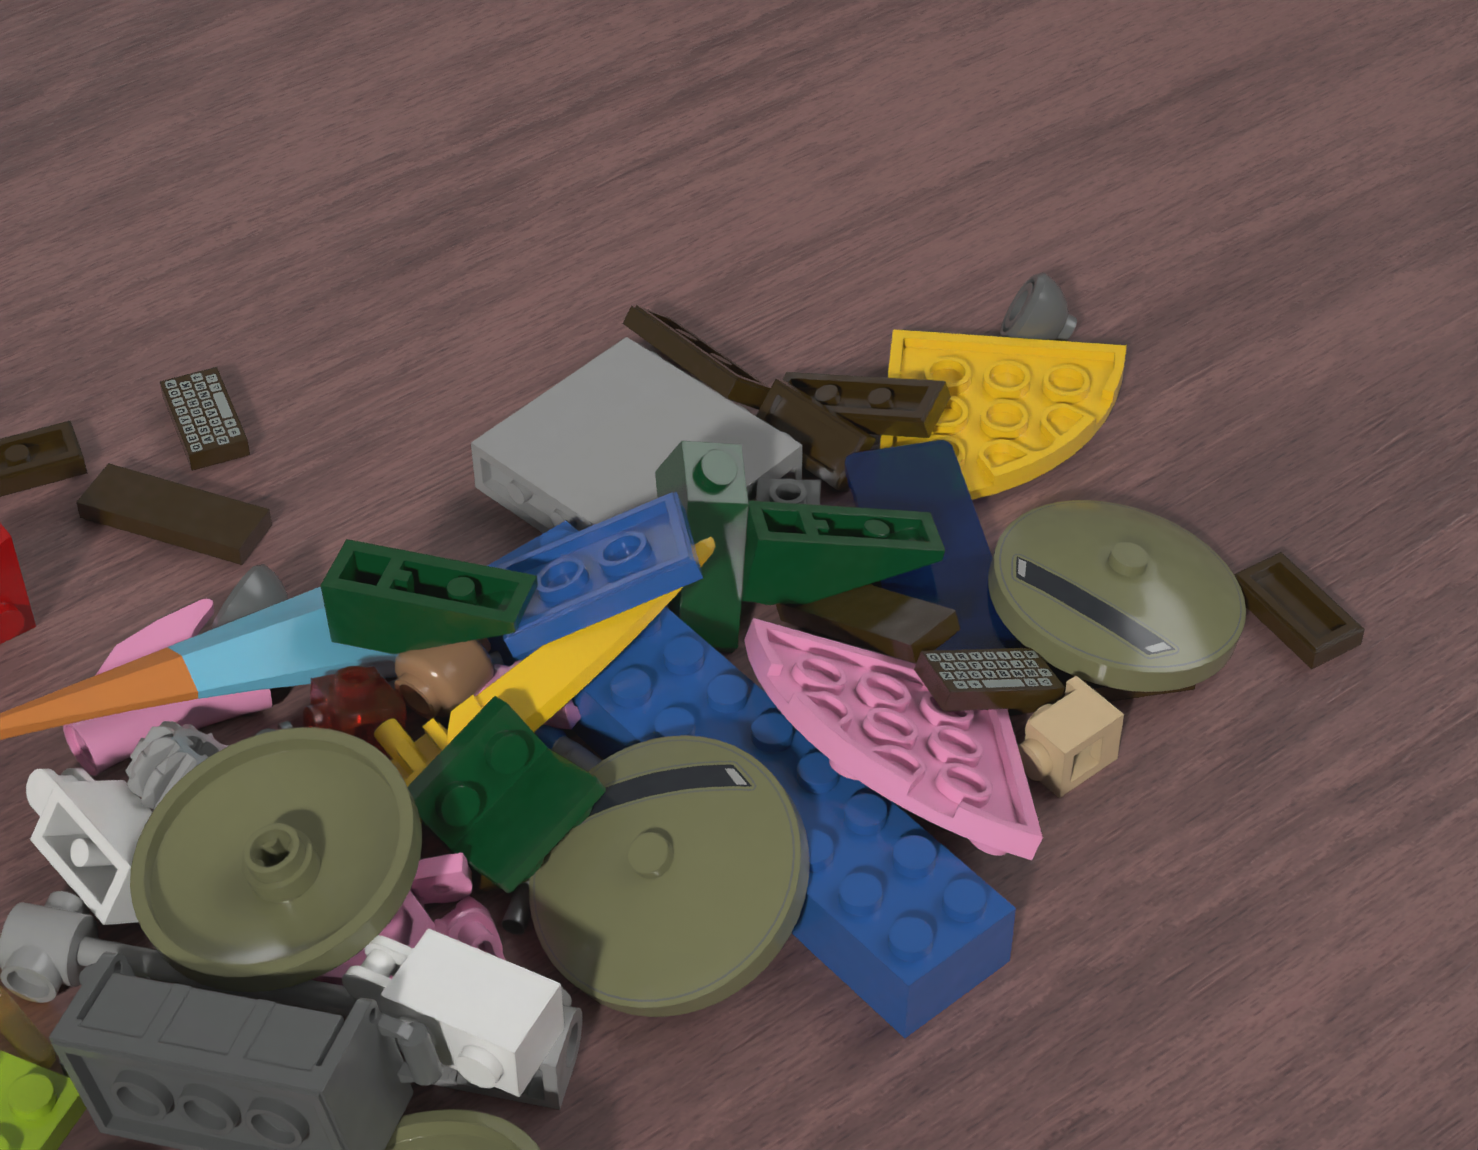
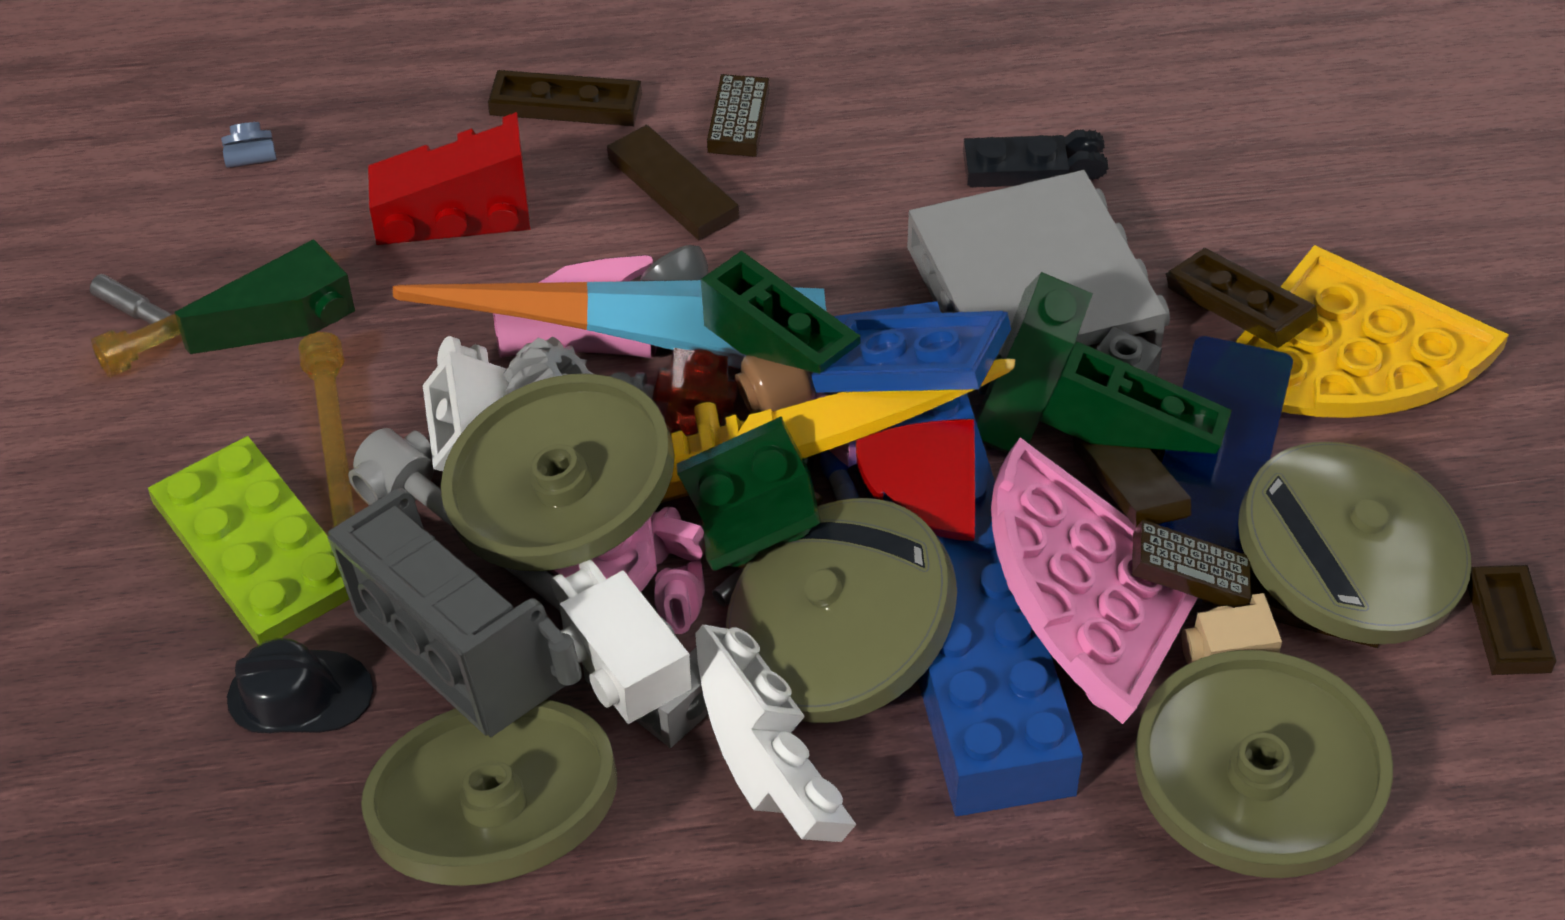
camera: 30 degrees right, 5 degrees up
(550, 350) = (1032, 158): none -> black hinge
(649, 1034) = (754, 727): none -> white slope
(679, 688) = (926, 471): none -> red brick
(697, 356) = (1137, 209): dark brown tile -> none
(823, 433) = (1190, 303): dark brown tile -> none
(1039, 312) = (1451, 278): dark grey brick -> none
(1179, 841) = (1263, 763): none -> olive dish

